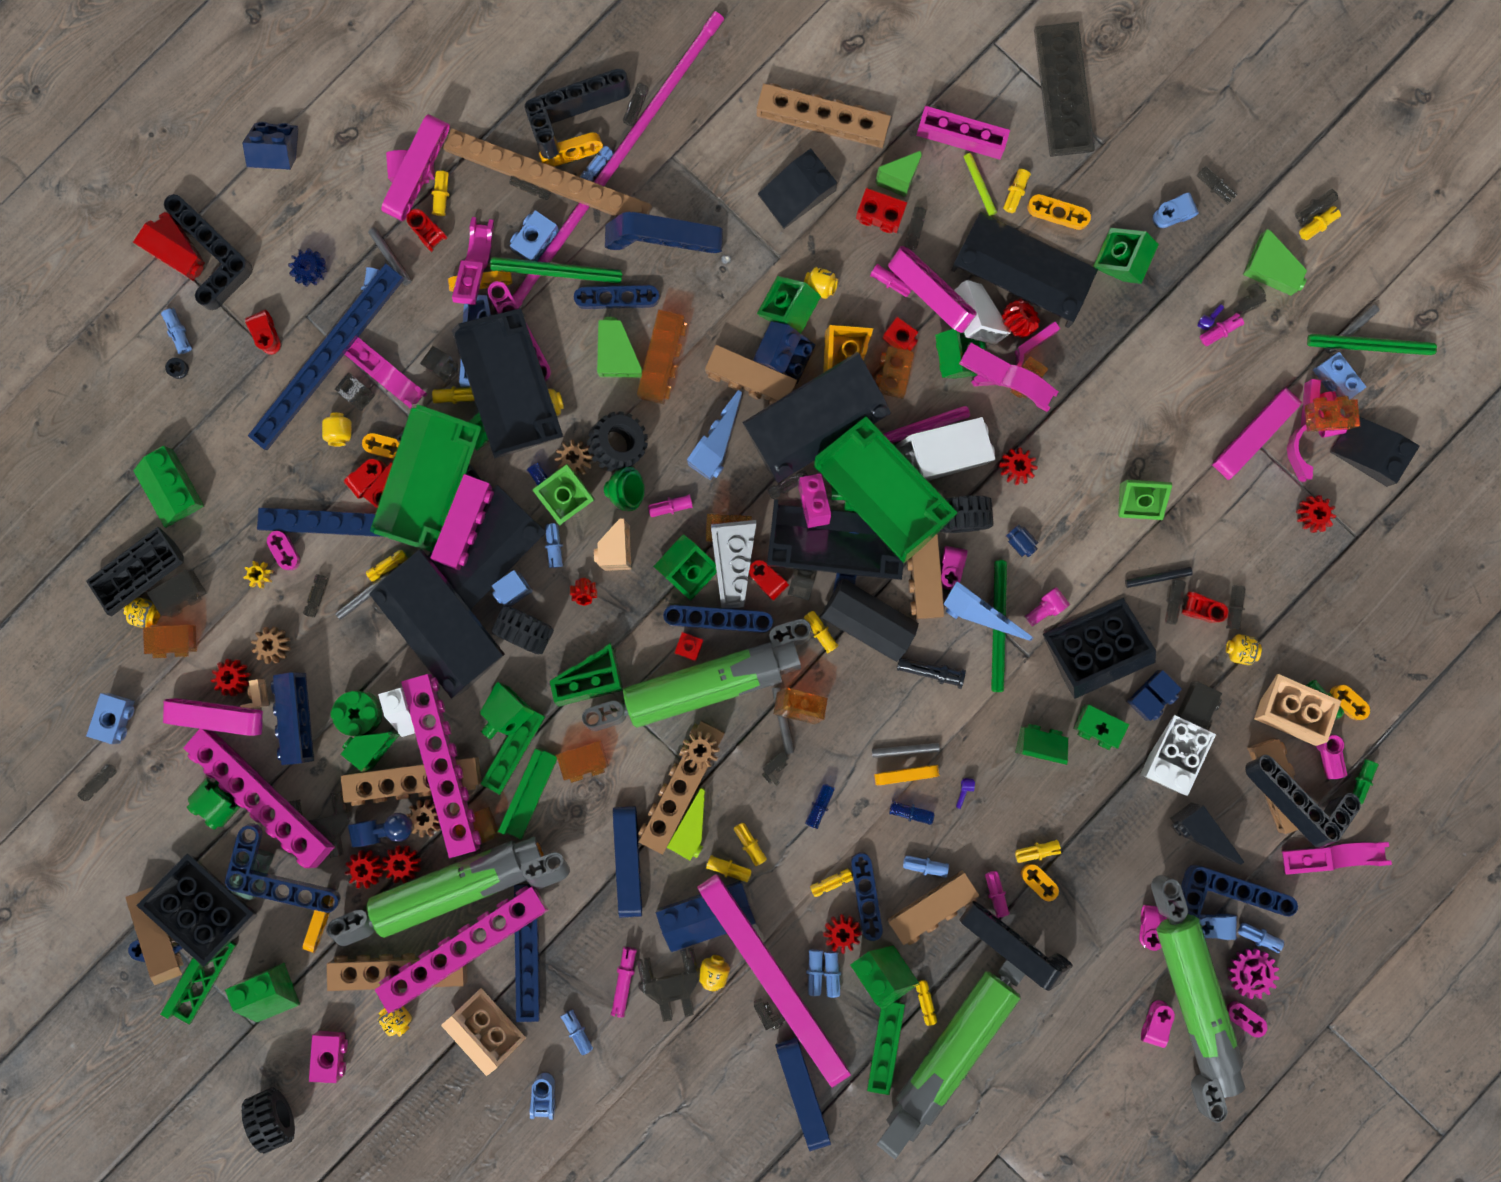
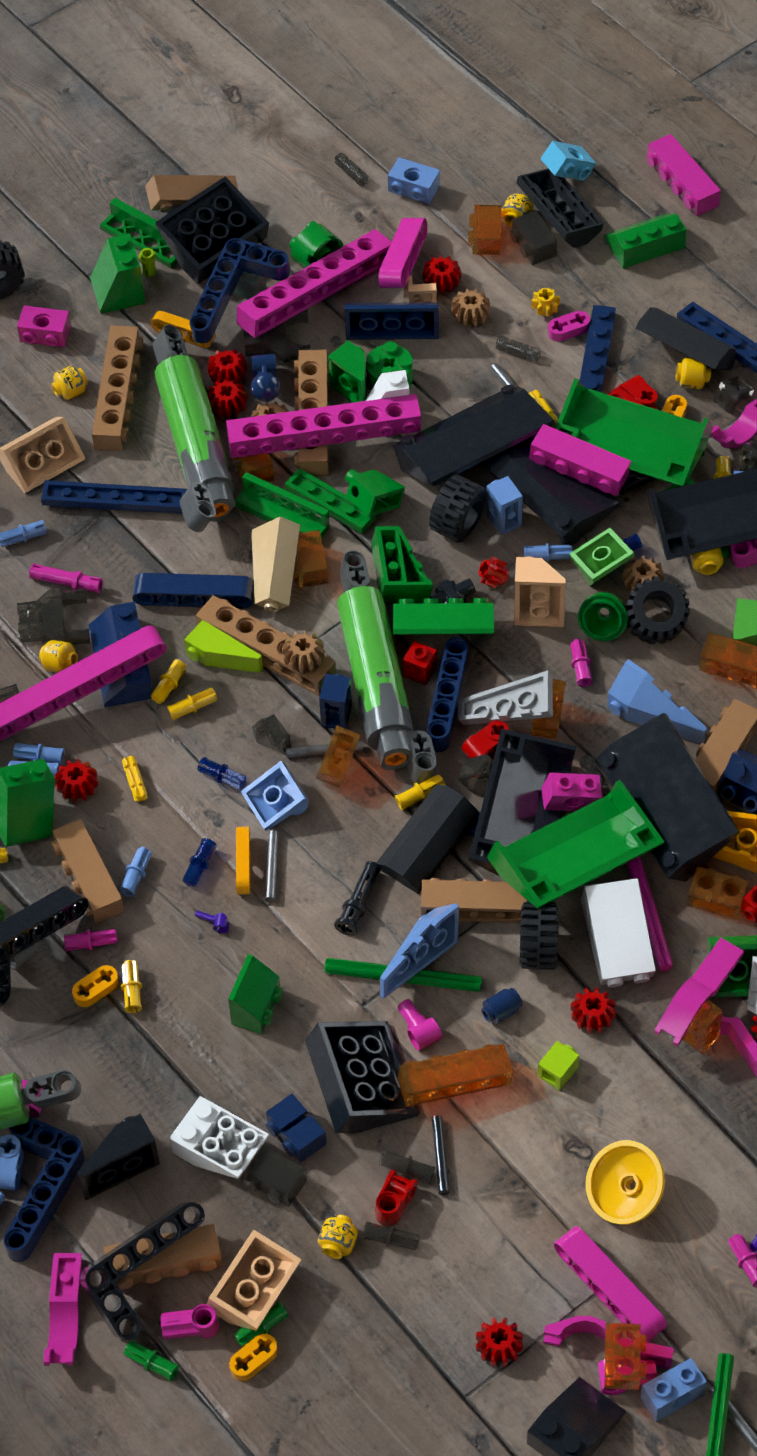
camera: 95 degrees right, 30 degrees down
(80, 567) = (568, 160): none -> medium azure brick
(84, 456) = (683, 175): none -> dark pink brick
(237, 967) = (147, 258): none -> lime pin
(302, 436) = (687, 339): none -> black piece
(394, 999) = (131, 432): dark pink brick -> none
(596, 791) = (274, 562): none -> tan slope
(610, 628) = (449, 589): none -> black axle
(646, 629) = (443, 618): none -> green slope
(686, 567) = (507, 662): green slope -> none
(742, 715) = (335, 701): none -> dark blue brick
(841, 755) = (276, 796): none -> medium blue slope
(870, 895) = (113, 806): dark blue beam -> none
(952, 563) = (480, 929): dark pink piece -> none
(1071, 489) = (558, 1065): none -> lime brick
(1093, 571) = (455, 1074): none -> clear orange brick
(1113, 728) = (266, 1065): green brick -> none
(1143, 499) = (538, 1143): bright green slope -> none
(1185, 428) = (611, 1177): none -> yellow dish

